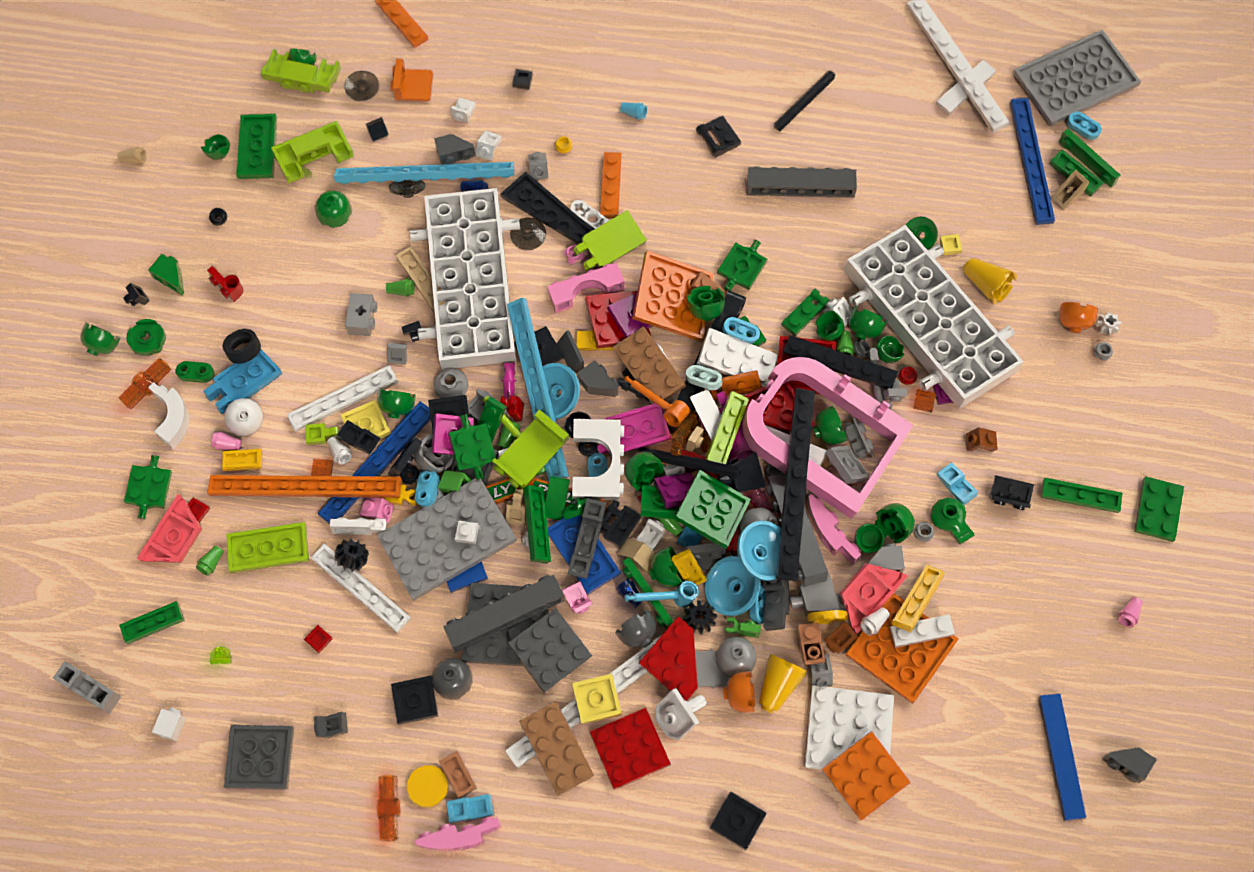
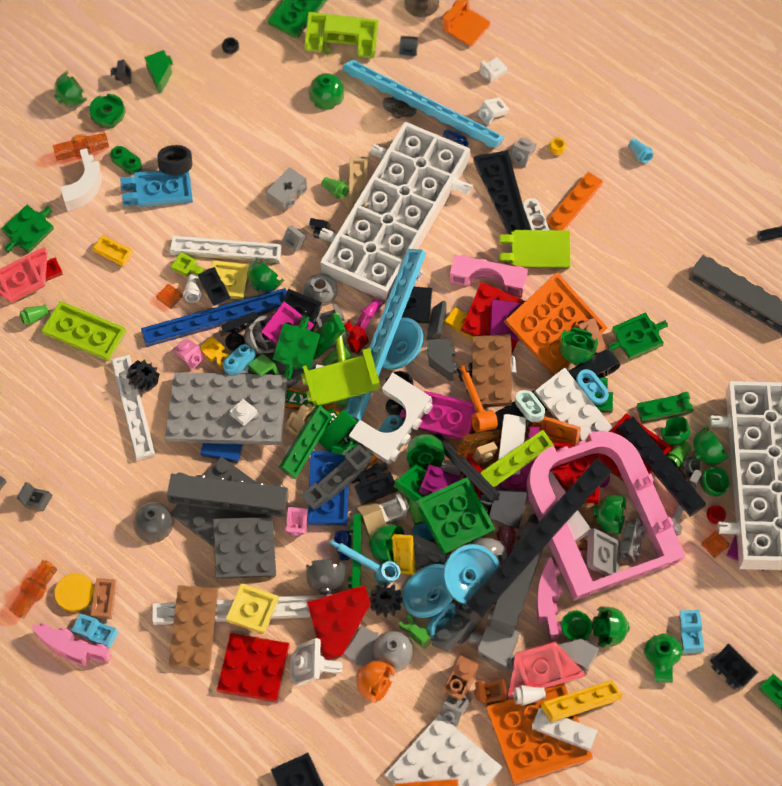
camera: 35 degrees right, 5 degrees down
(223, 441) = (109, 228): bright pink cone -> none
(225, 284) = (198, 103): red plate -> none
(247, 424) = (133, 223): white cylinder -> none
(304, 486) = (146, 300): orange plate -> none
(318, 639) = (72, 426): red tile -> none
(357, 527) = (164, 357): white hinge -> none
(414, 700) = (111, 519): black plate -> none
(453, 149) = (460, 97): dark grey slope -> none
(522, 79) = (561, 71): black tile -> none
(529, 240) = (474, 210): clear smoke dish -> none
(572, 259) = (495, 246): bright pink plate -> none
(722, 132) = (705, 214): black plate -> none
(779, 683) = (411, 693): yellow cone -> none
(827, 617) = (490, 665): yellow tile -> none
(841, 307) = (696, 421): white bracket -> none
(894, 394) = (691, 522): light grey bracket -> none
(924, 526) = (631, 647): light grey plate -> none
(981, 439) = (742, 608): dark orange bracket -> none

